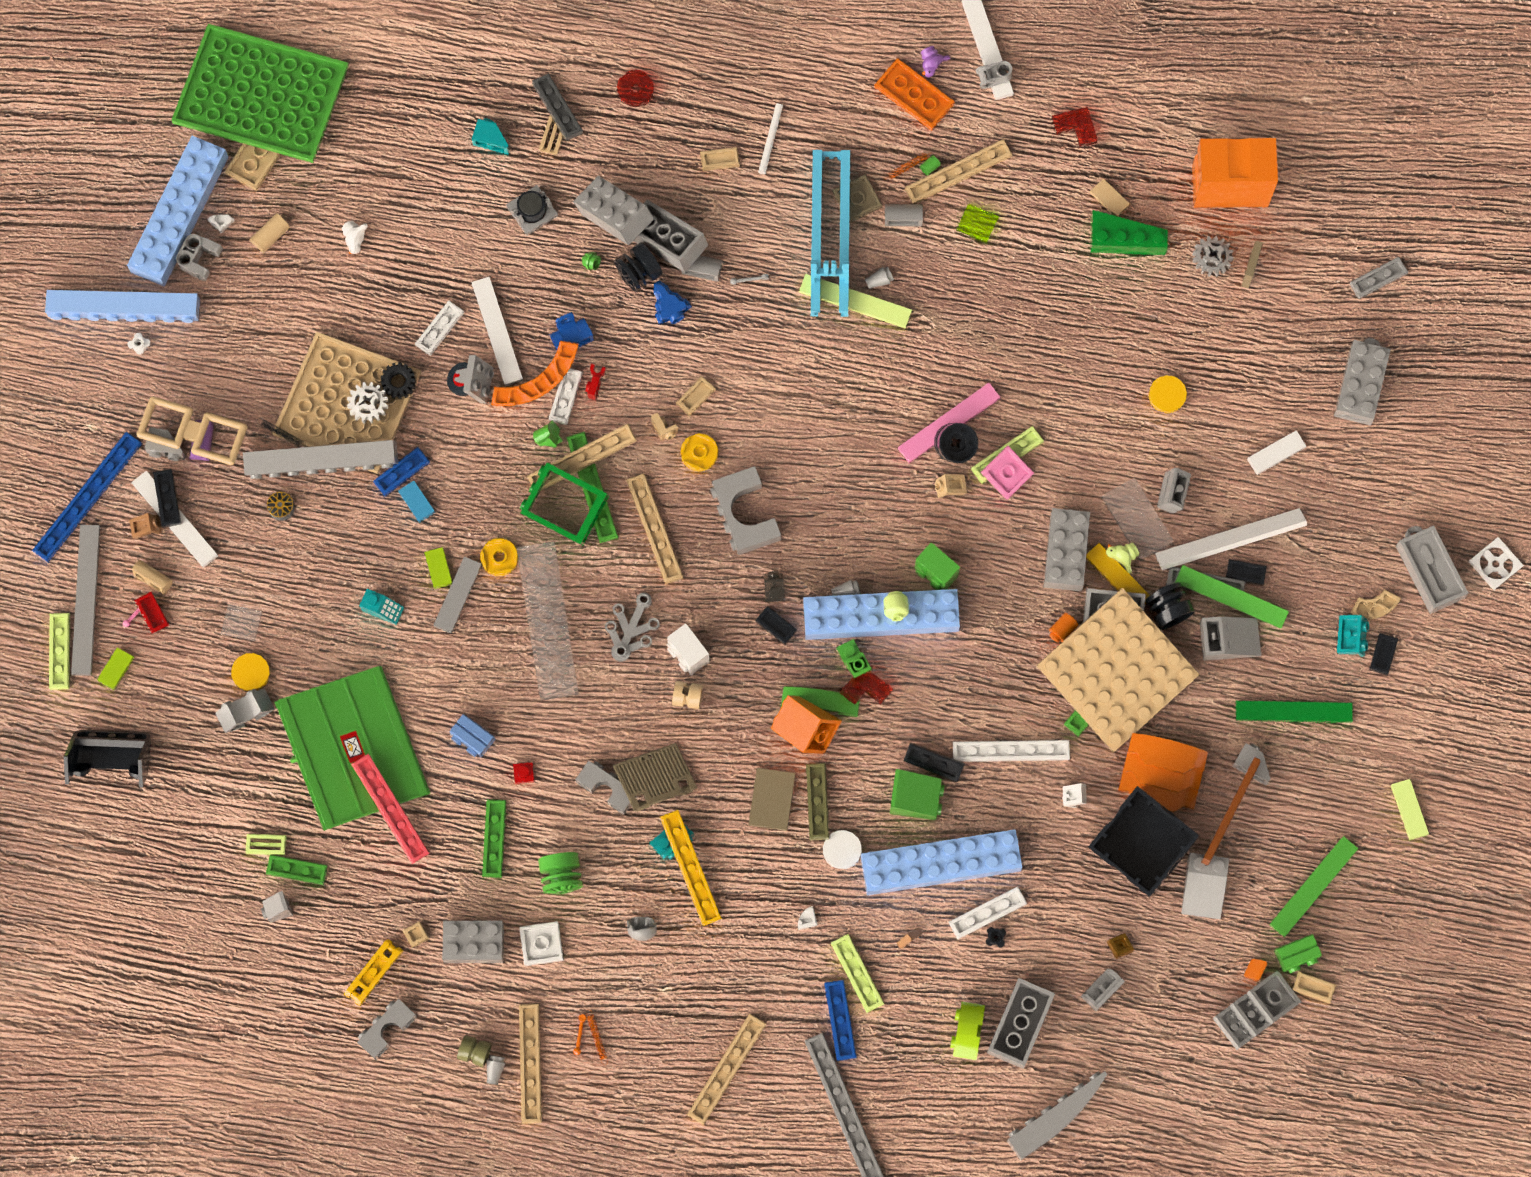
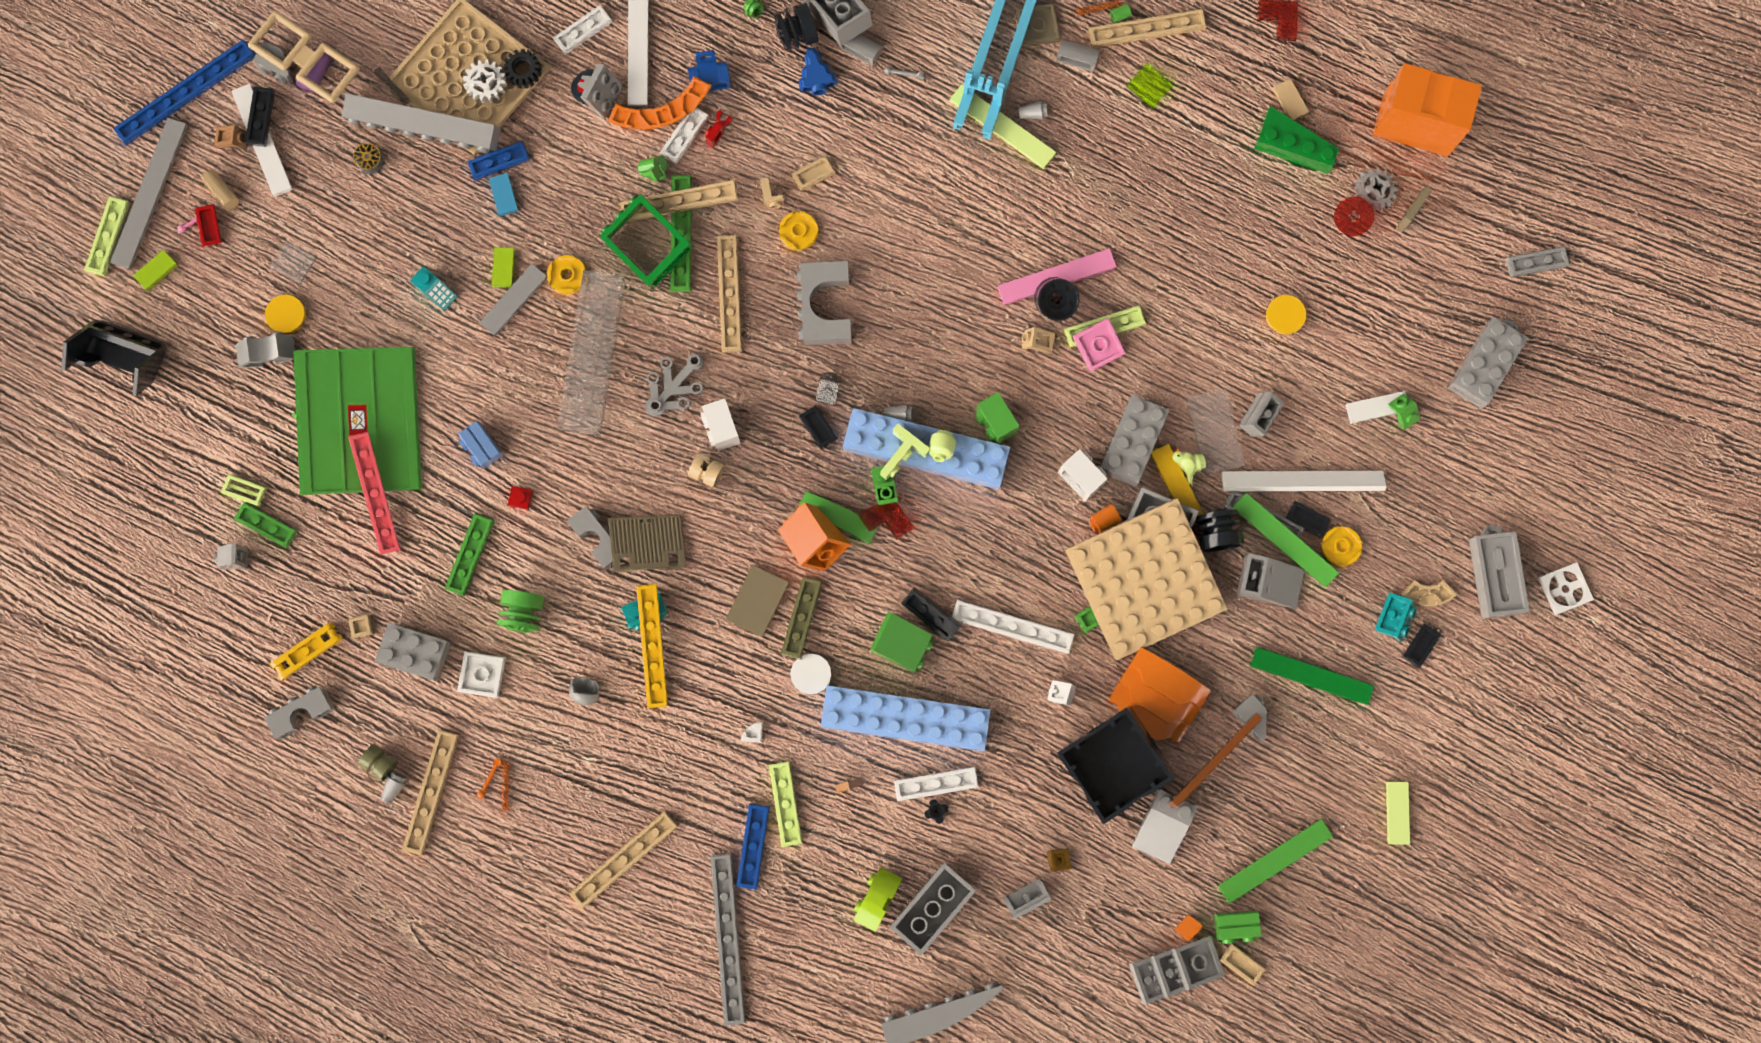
camera: 15 degrees right, 5 degrees up
(867, 611) = (904, 451): none -> yellowish green bracket
(1031, 594) = (1083, 474): none -> white brick
(1191, 281) = (1345, 223): none -> clear red plate
(1284, 587) = (1341, 546): none -> yellow tile
(1302, 447) = (1406, 411): none -> bright green bracket

